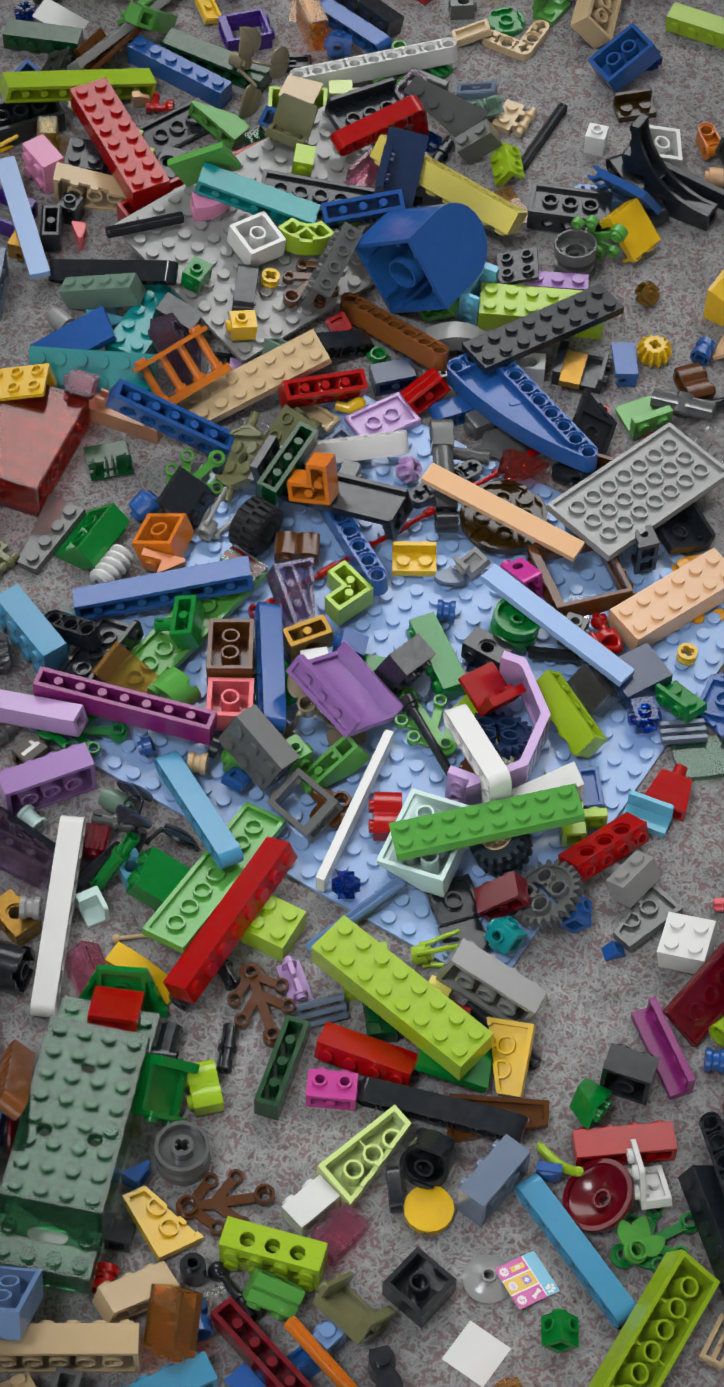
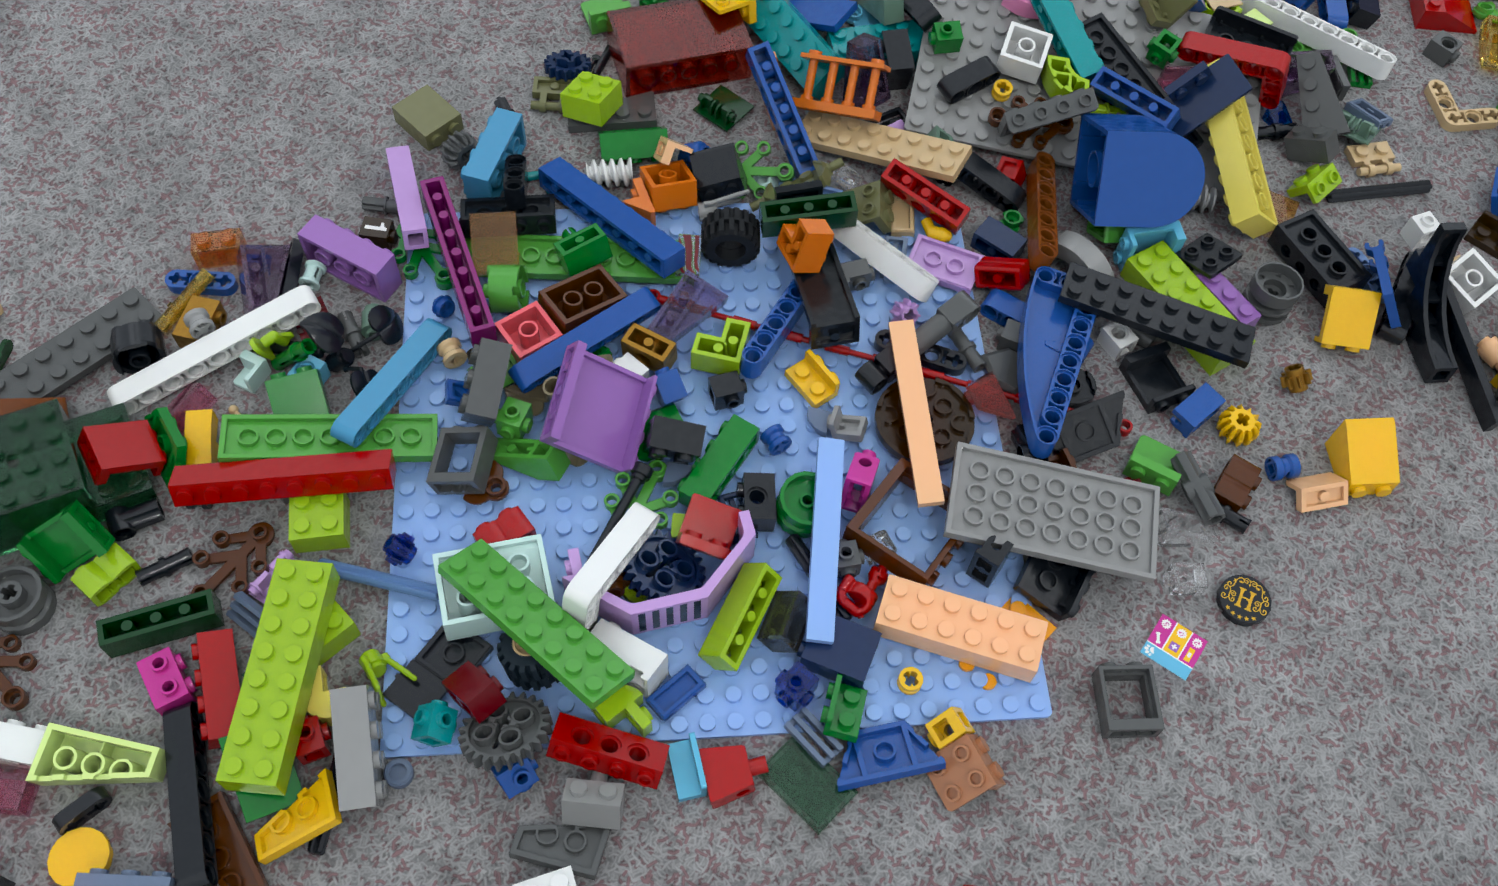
camera: 50 degrees right, 5 degrees up
(32, 533) = (591, 98): none -> lime brick
(81, 382) = (760, 29): clear pink brick -> none
(90, 869) = (261, 345): none -> lime piece
(136, 514) = (666, 147): none -> light nougat panel
(228, 975) = (248, 514): black axle -> none
(242, 325) = (931, 100): yellow brick -> none
(296, 546) = (743, 285): reddish brown brick -> none
(303, 160) = (1141, 32): lime brick -> none
(329, 158) = (1163, 48): none -> green brick
(354, 811) = (491, 504): white tile -> none
(380, 615) = (726, 390): none -> black brick
(428, 1158) = (123, 819): black brick -> none
(472, 32) = (1424, 73): tan tile -> none
(507, 21) = (1468, 91): green tile -> none
(573, 369) = (1147, 372): pearl gold tile -> none
(613, 951) = (502, 840): blue piece -> none
(616, 234) = (1322, 303): bright green plant -> none

